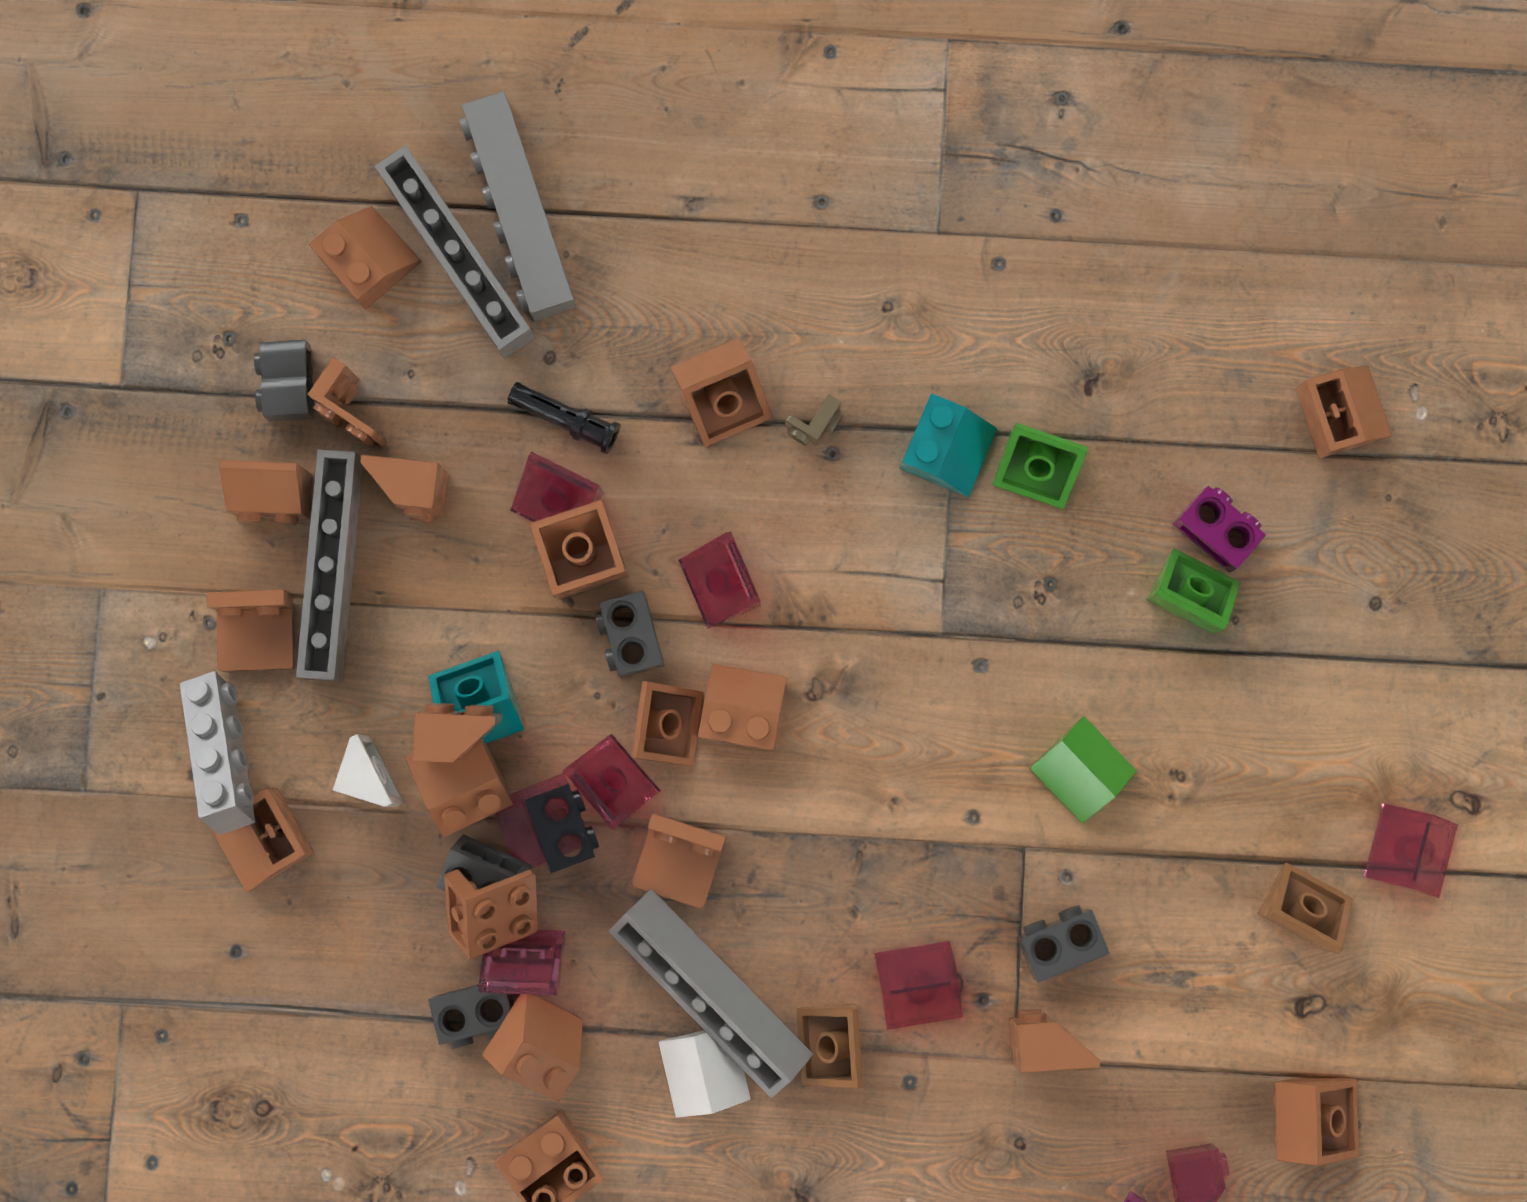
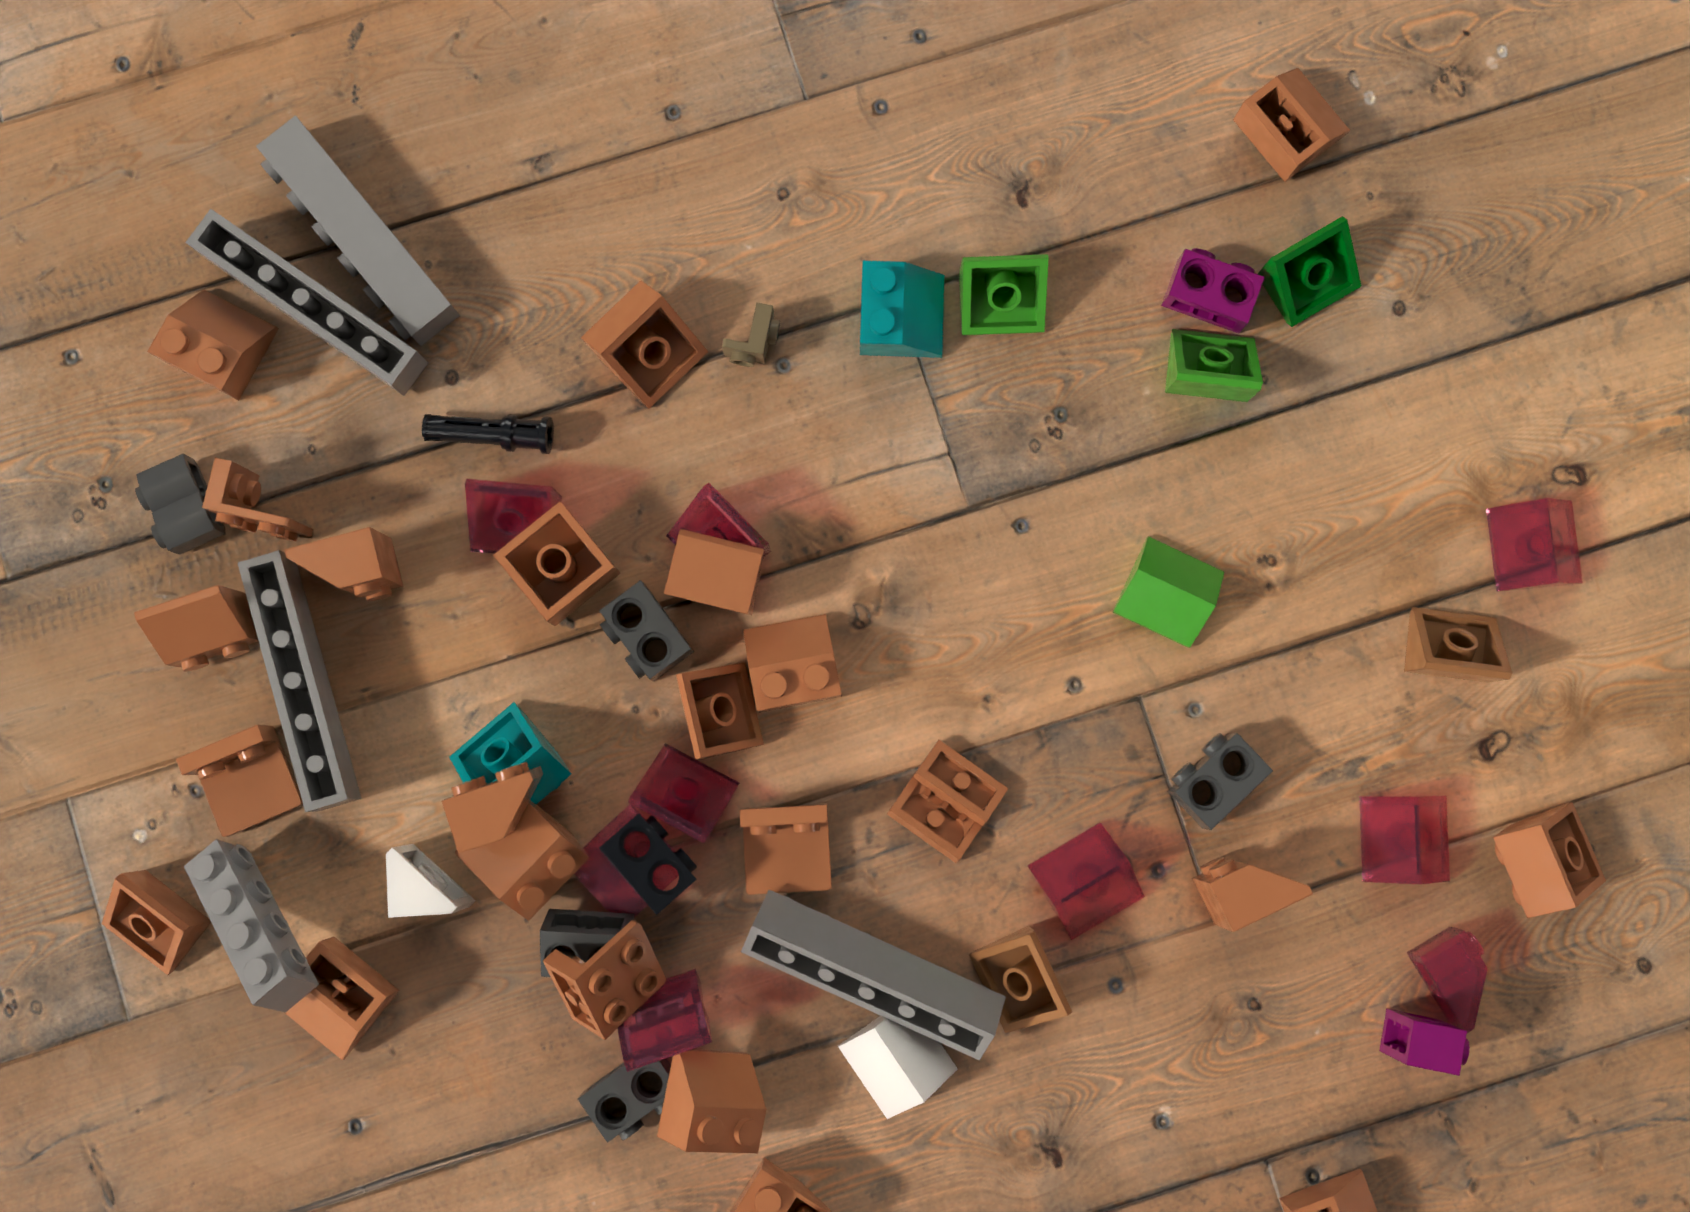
camera: 25 degrees left, 0 degrees up
(135, 717) = (153, 919): none -> nougat slope
(707, 608) = (715, 572): none -> nougat slope
(828, 873) = (947, 801): none -> nougat slope
(1201, 1055) = (1404, 839): none -> clear pink slope
(1310, 546) = (1312, 272): none -> green slope

